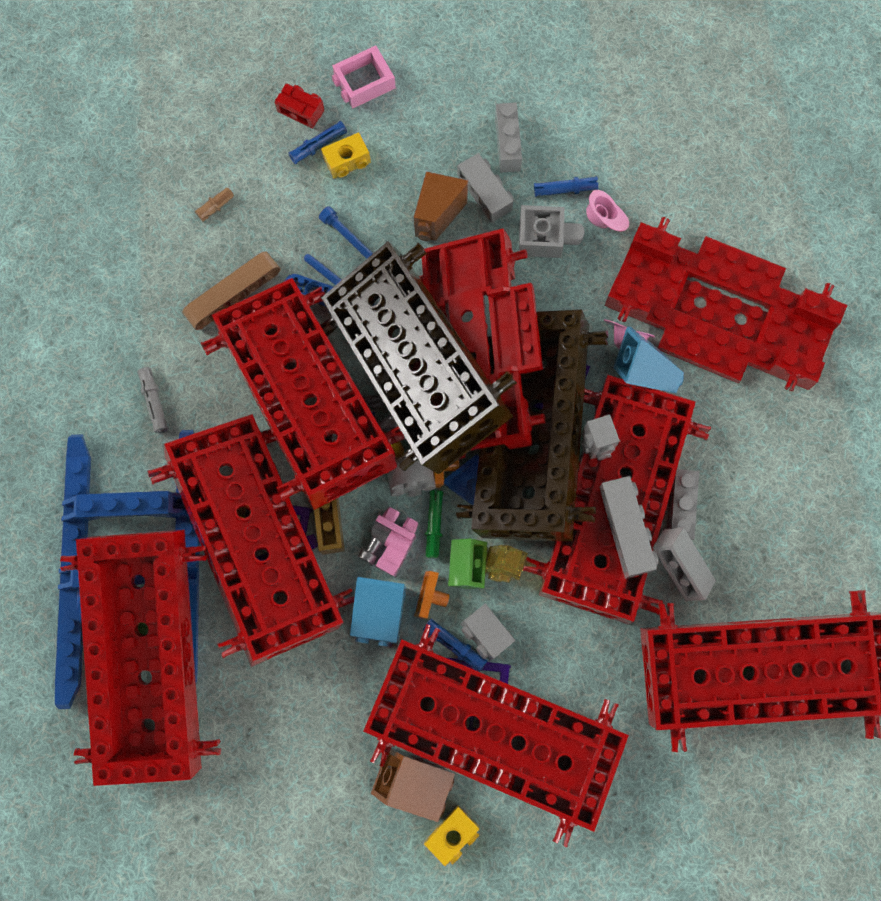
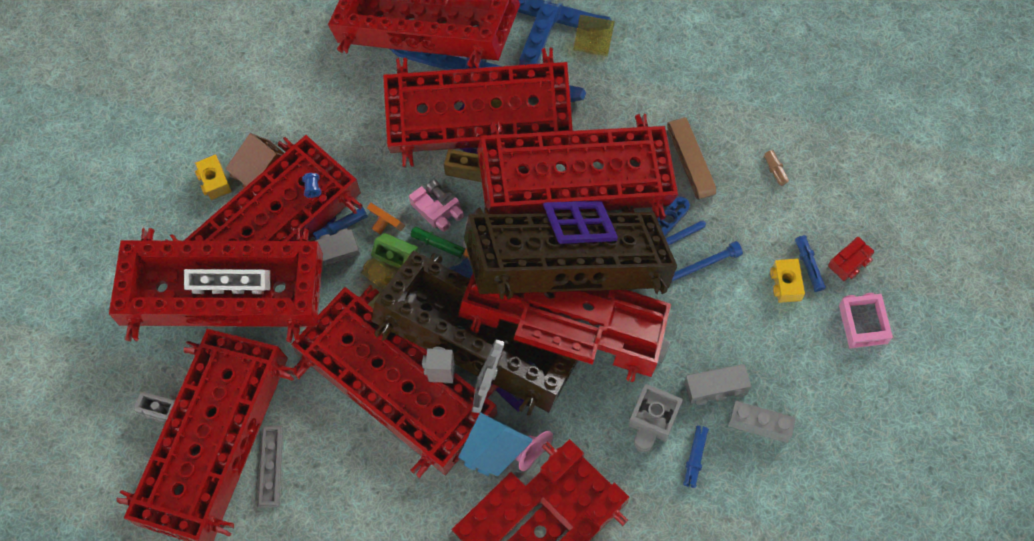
camera: 110 degrees right, 10 degrees down
(99, 447) = (594, 35): none -> clear yellow plate
(150, 391) = (619, 80): light grey pin -> none
(374, 353) = (578, 220): none -> dark purple window
(377, 611) = (389, 179): dark azure slope -> none
(433, 686) = (311, 185): none -> blue bush
(438, 204) = (709, 332): dark orange slope -> none
(594, 384) = (486, 376): none -> light grey wing
(603, 722) = (219, 280): none -> white brick
(605, 213) = (653, 478): bright pink piece -> none
(627, 726) = (150, 263): none -> red piece
(628, 527) = (361, 363): light grey brick -> none
(683, 501) = (366, 431): light grey brick -> none
(684, 564) = (317, 405): light grey brick -> none
(759, 594) = (270, 466): none -> light grey tile
(762, 748) = (153, 407): none -> light grey brick

